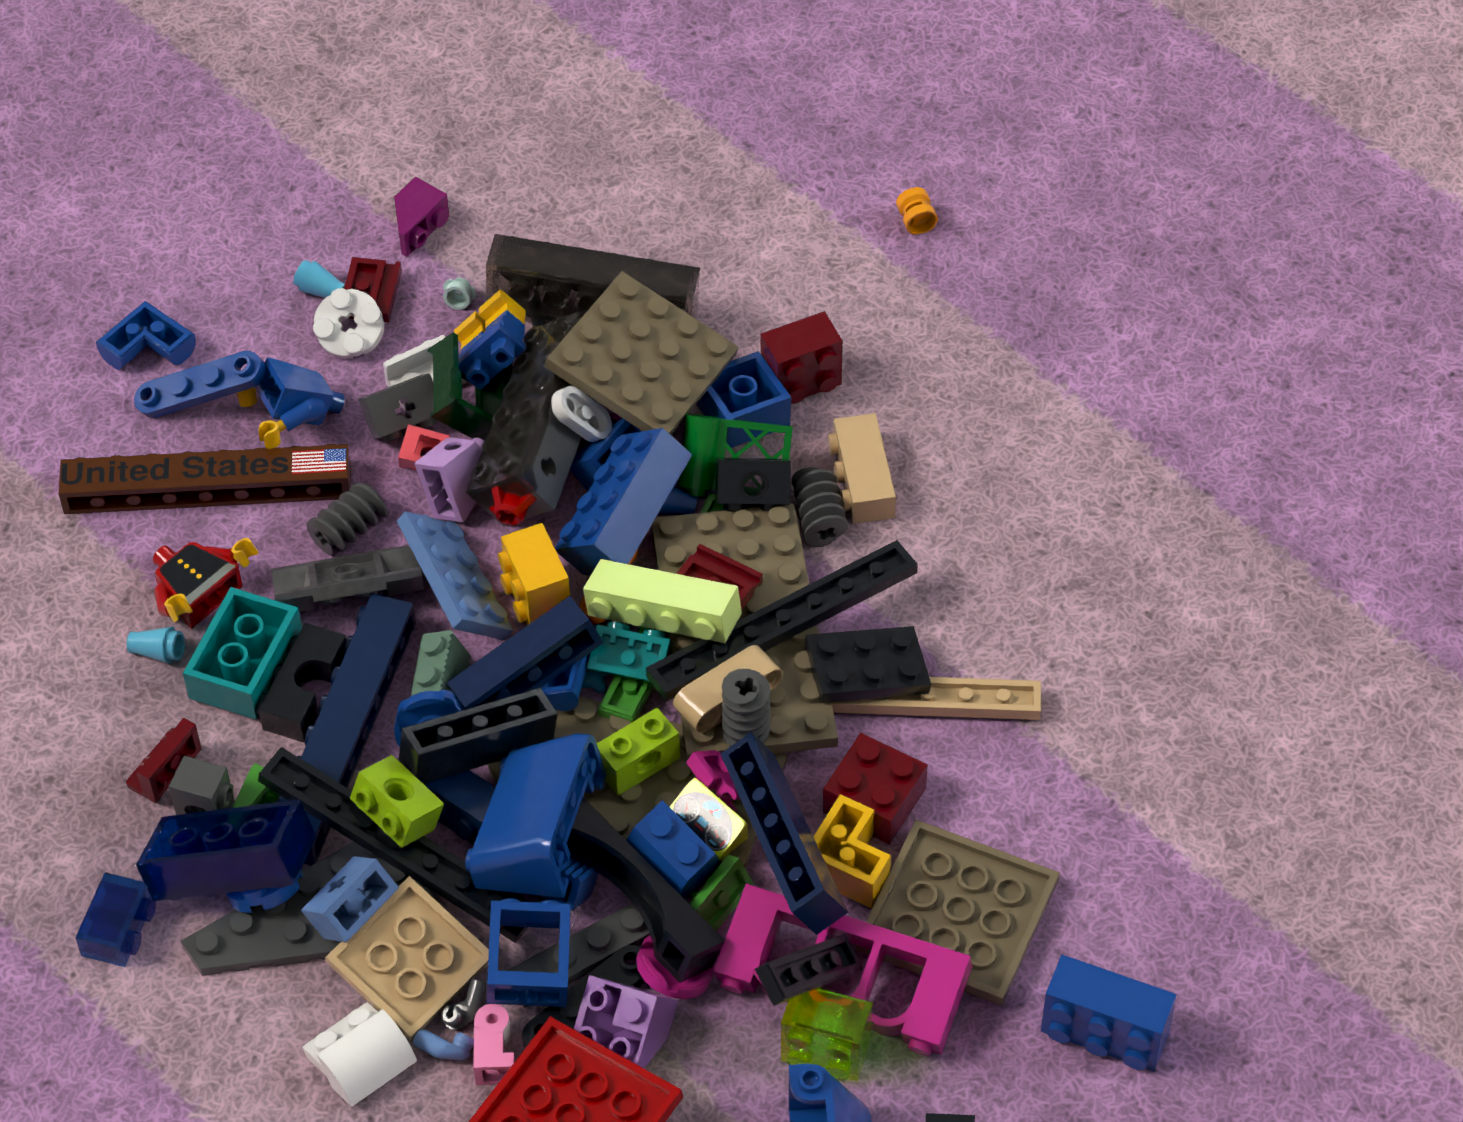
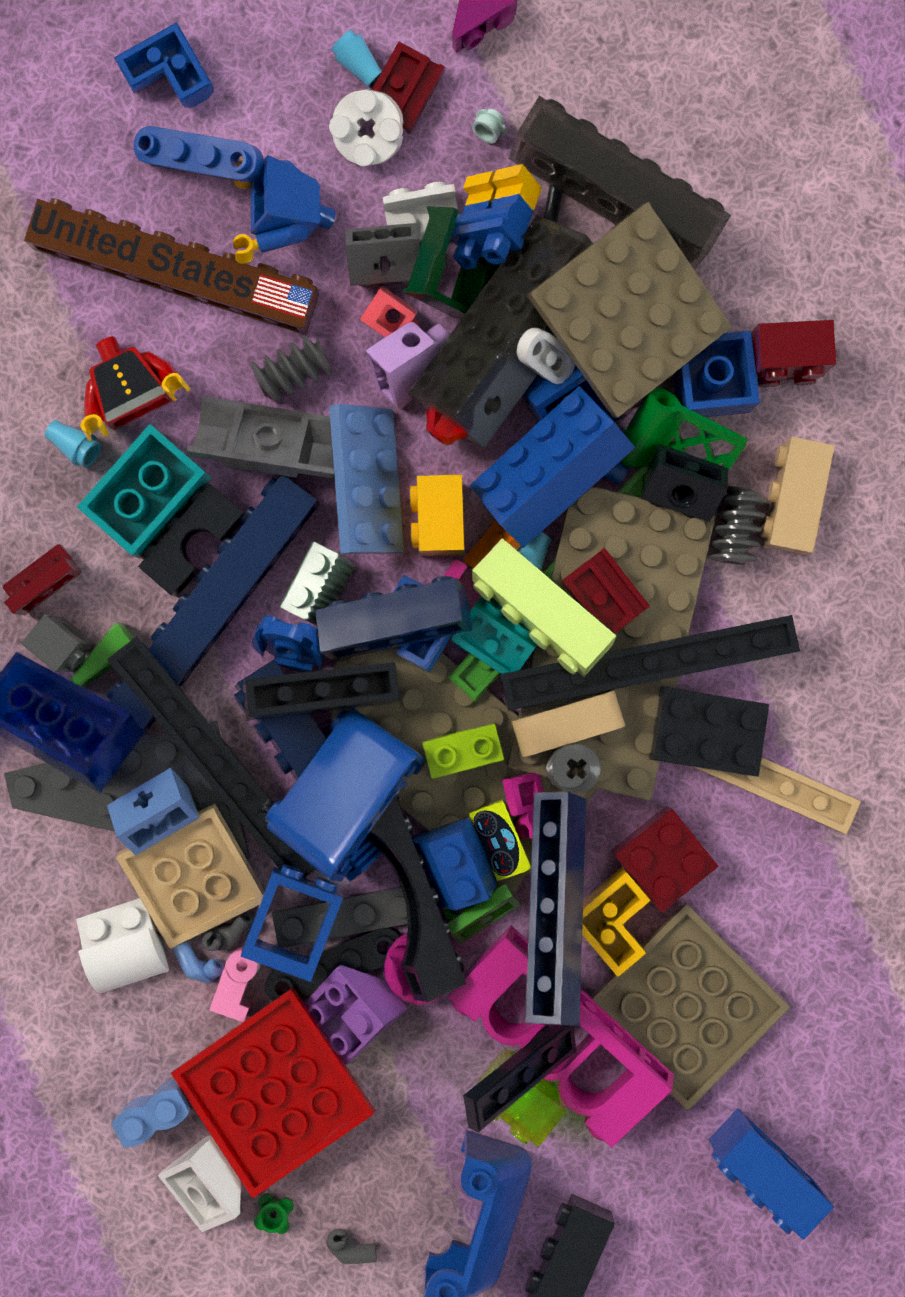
camera: 25 degrees right, 35 degrees up
(396, 801) = (241, 744): lime brick -> none

